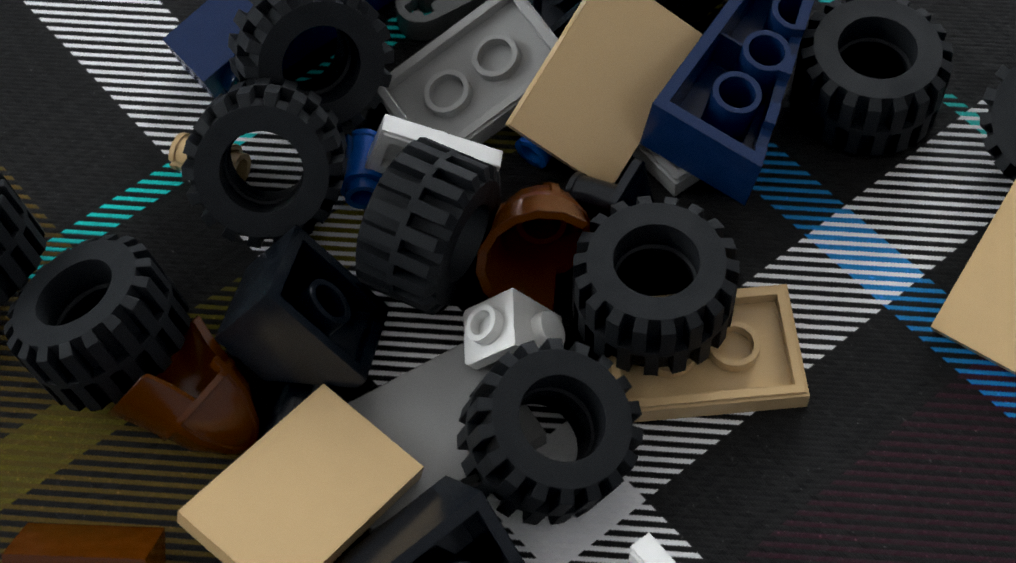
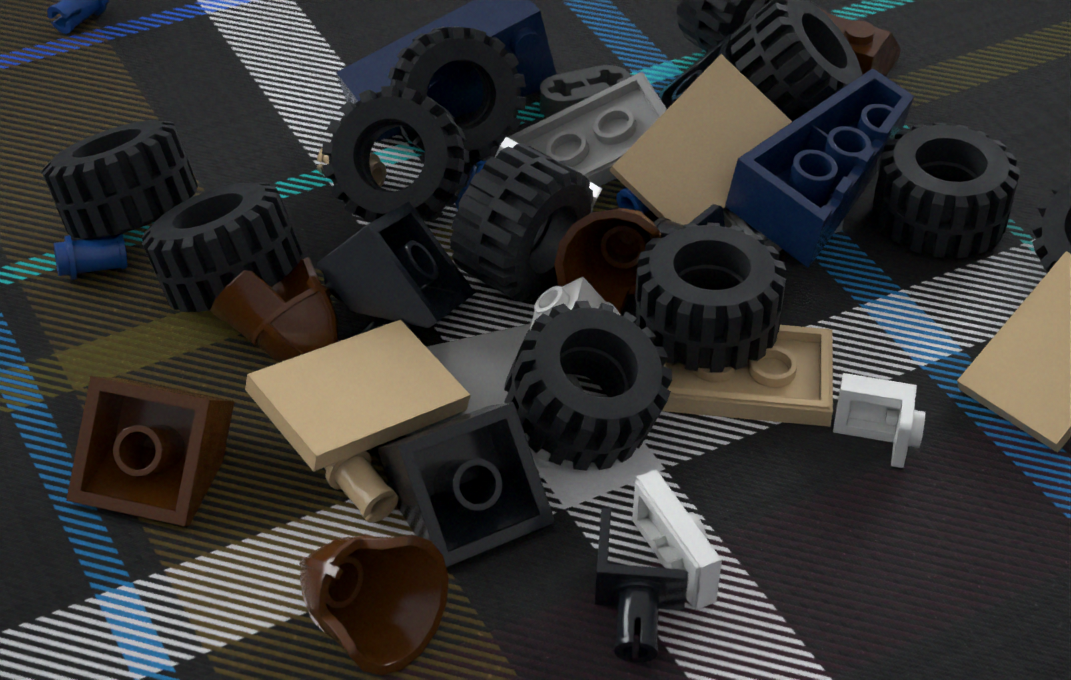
camera: 10 degrees right, 15 degrees down
(863, 387) = (880, 412): none -> white bracket

